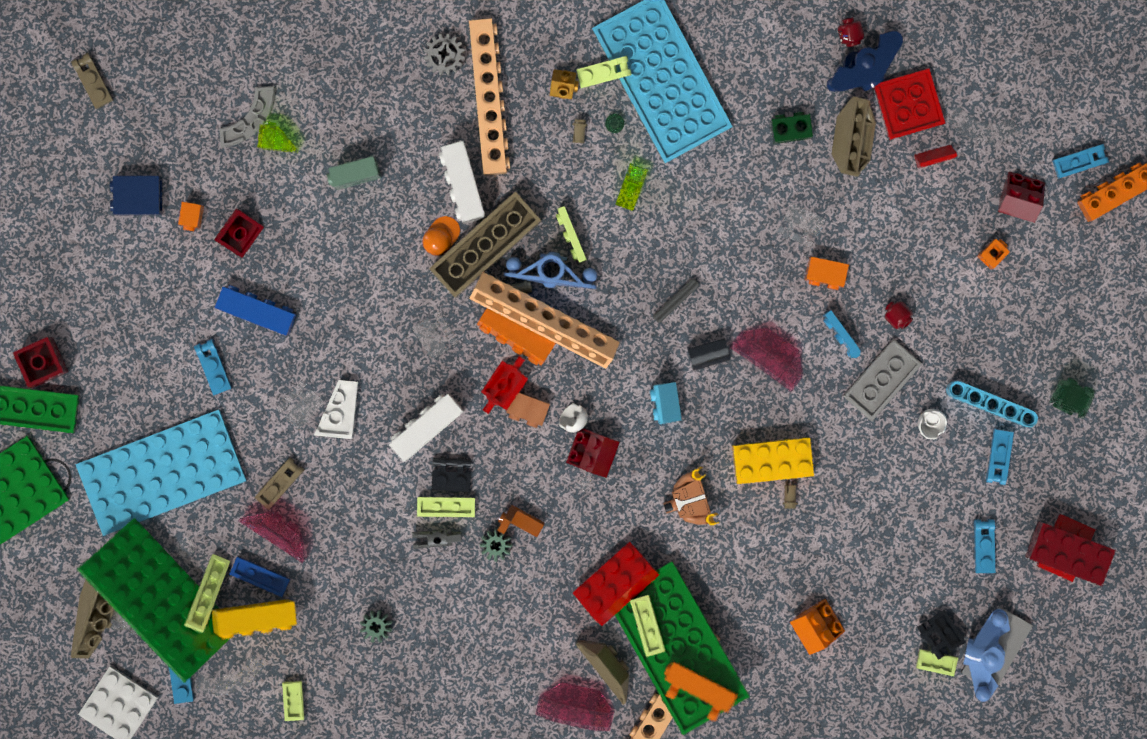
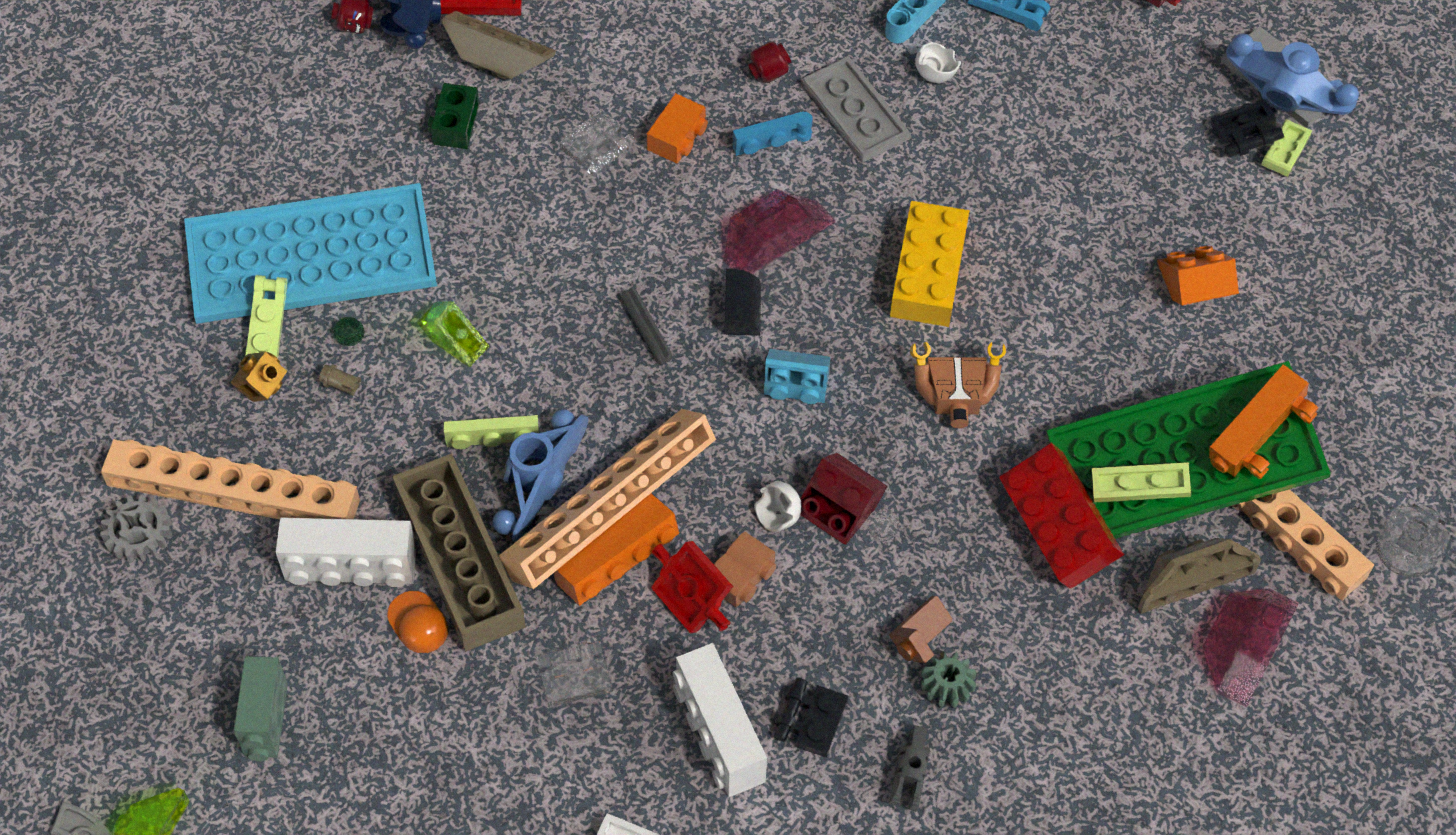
camera: 65 degrees left, 30 degrees down
(445, 507) = (862, 739): yellowish green plate -> none
(790, 497) = (992, 260): dark tan pin -> none
(984, 546) = (1130, 53): dark azure plate -> none

